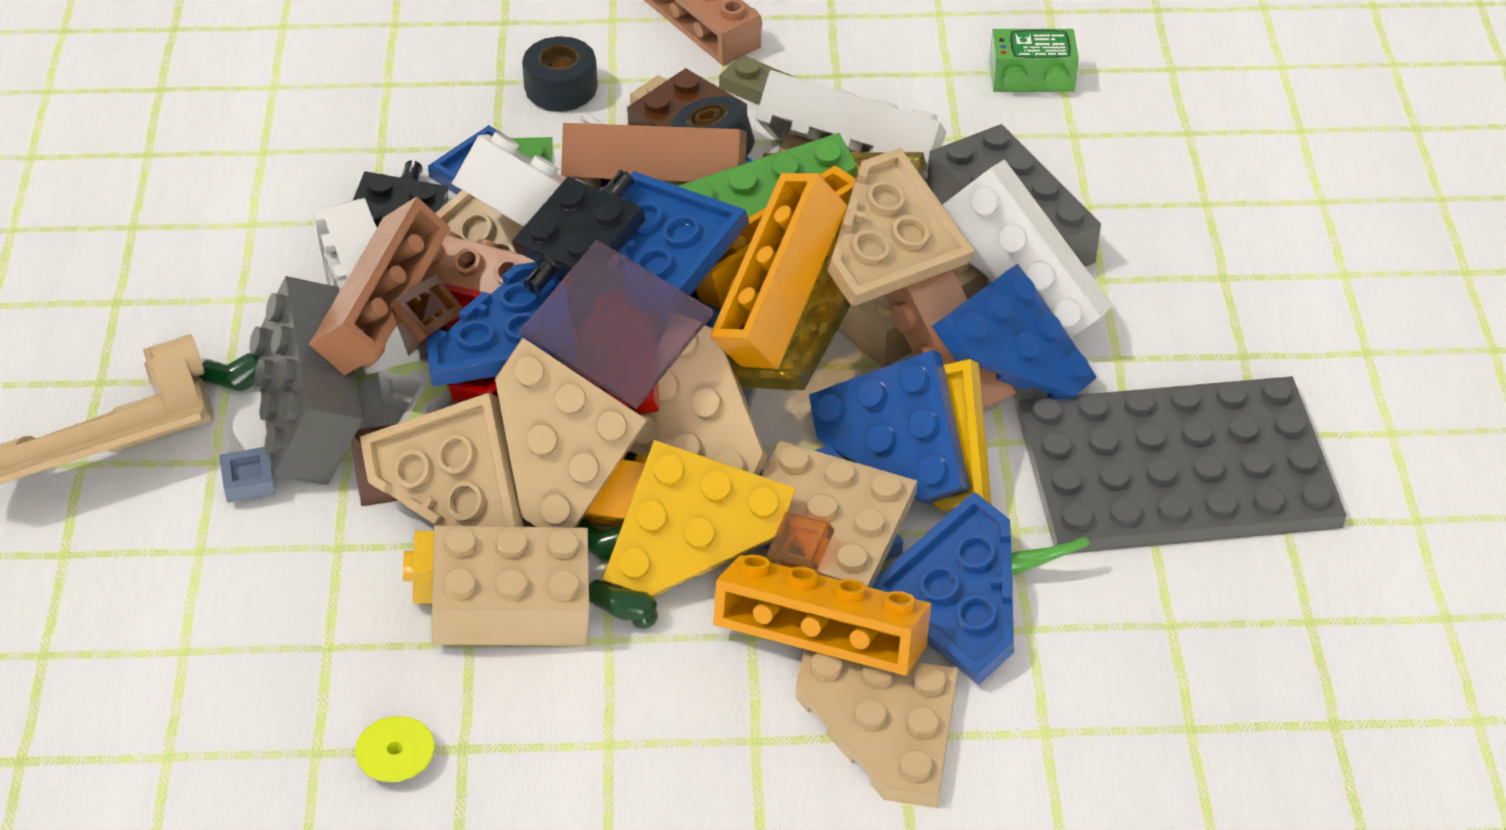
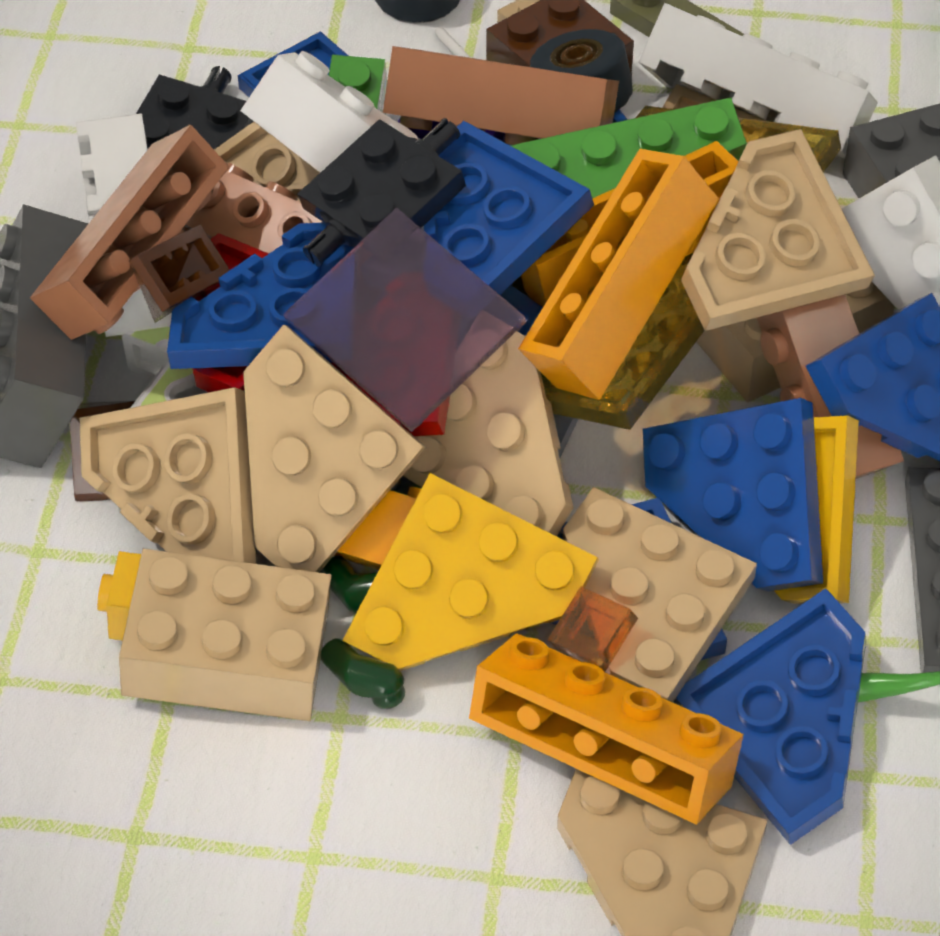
camera: 10 degrees right, 5 degrees up
(394, 749) = (49, 827): neon yellow piece -> none

